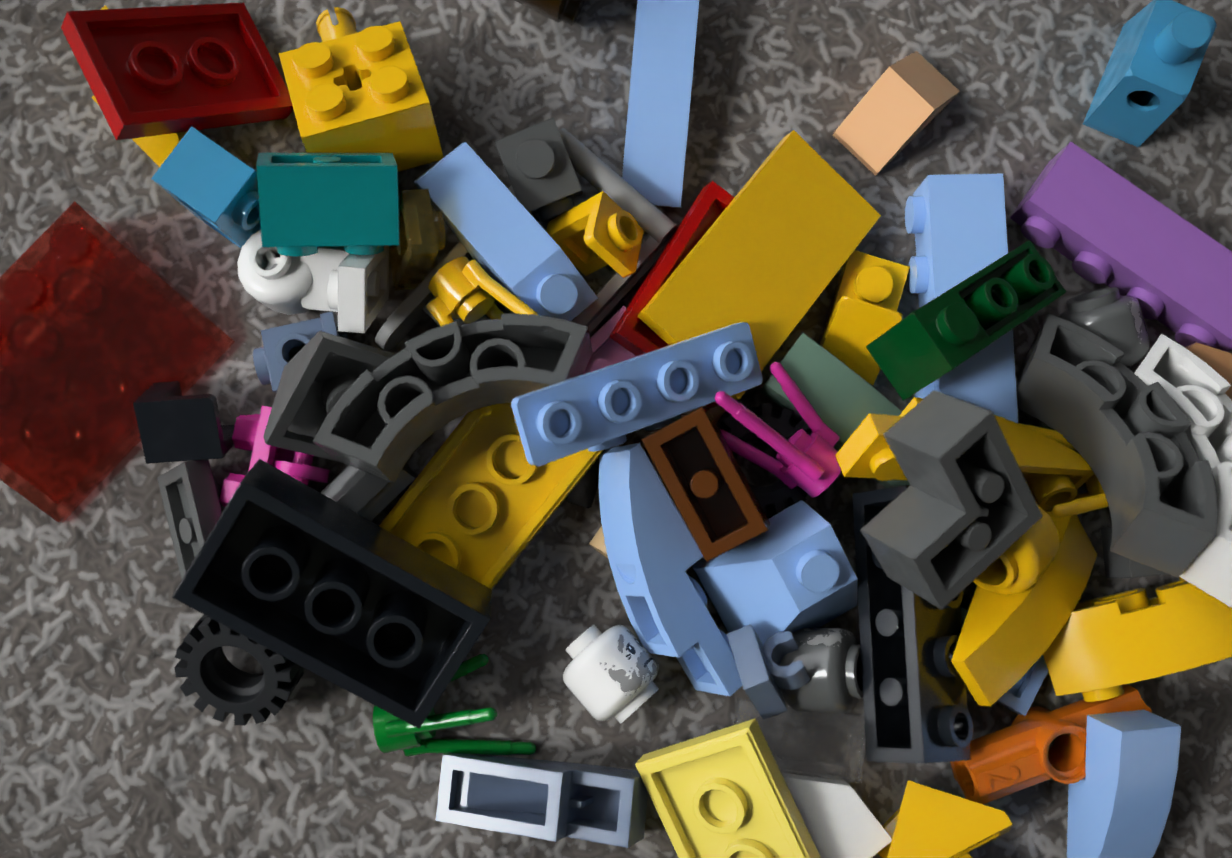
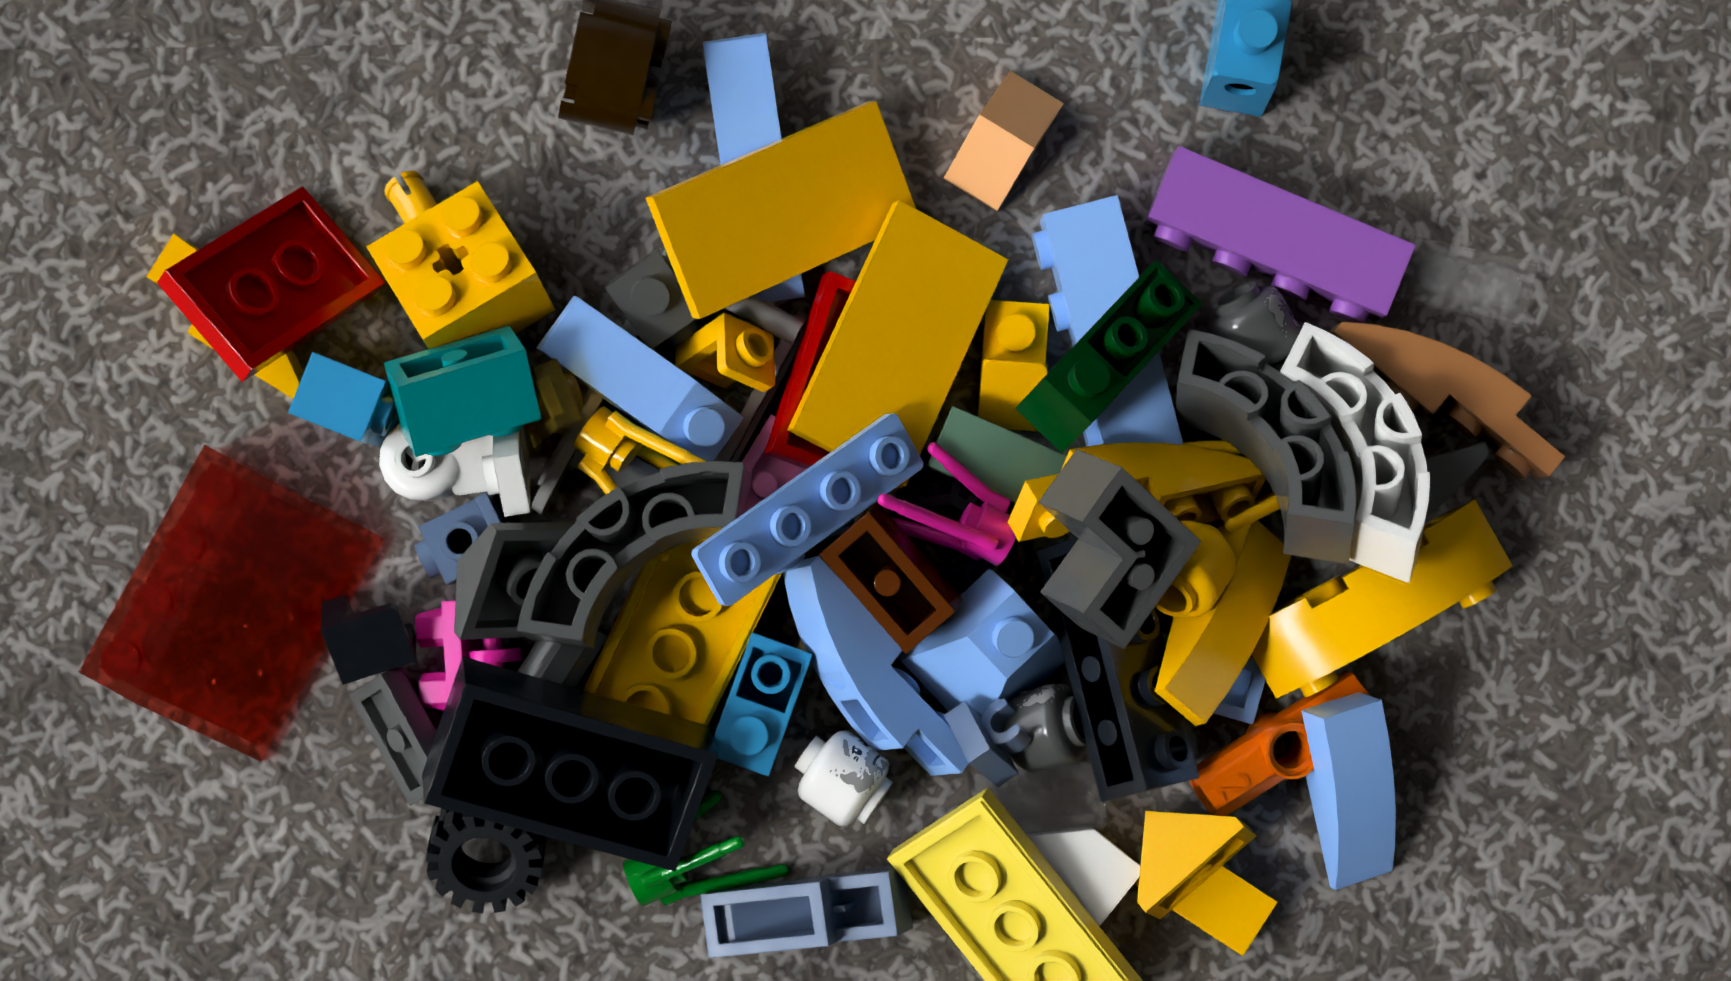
camera: 15 degrees left, 5 degrees up
(546, 579) = (760, 703): none -> dark azure slope
(675, 110) = (780, 209): none -> yellow tile

